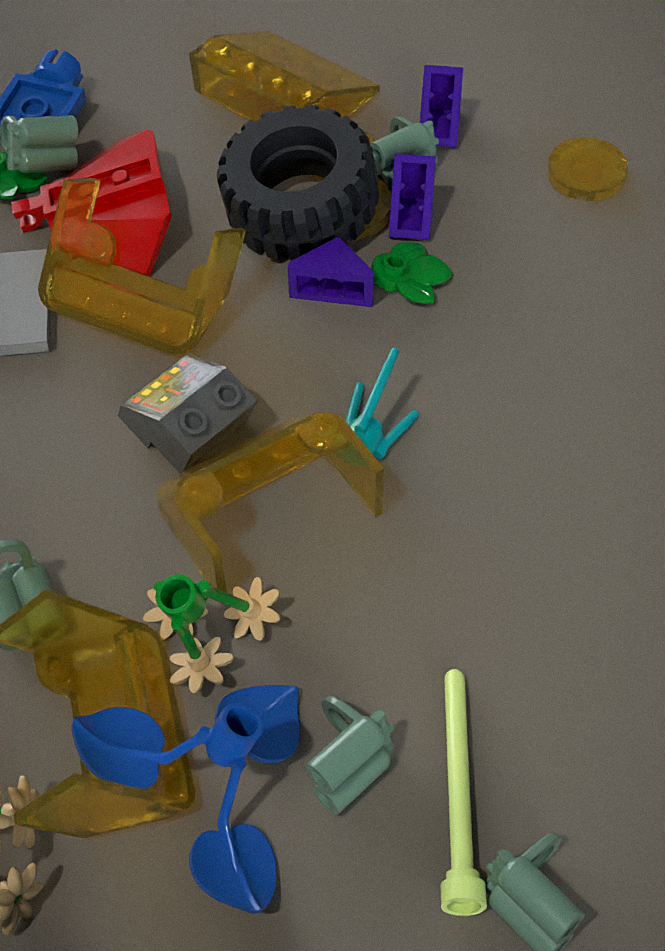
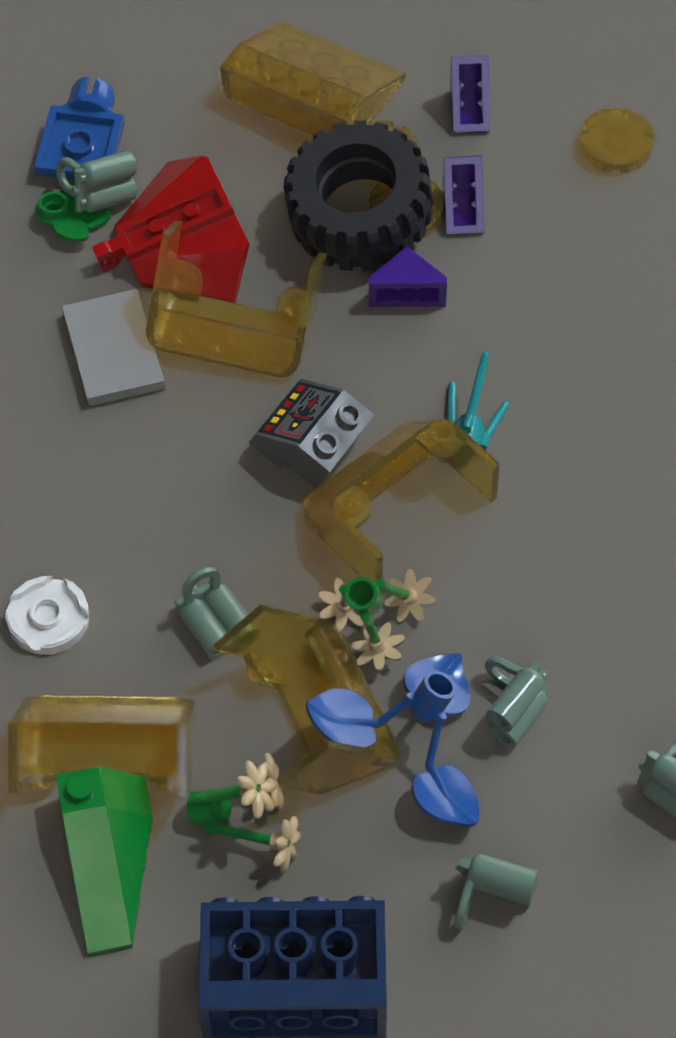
camera: 10 degrees left, 5 degrees up
(410, 272) = (475, 268): green plate -> none
(412, 139) = (451, 140): sand green piece -> none
(462, 890) = (622, 787): yellowish green piece -> none

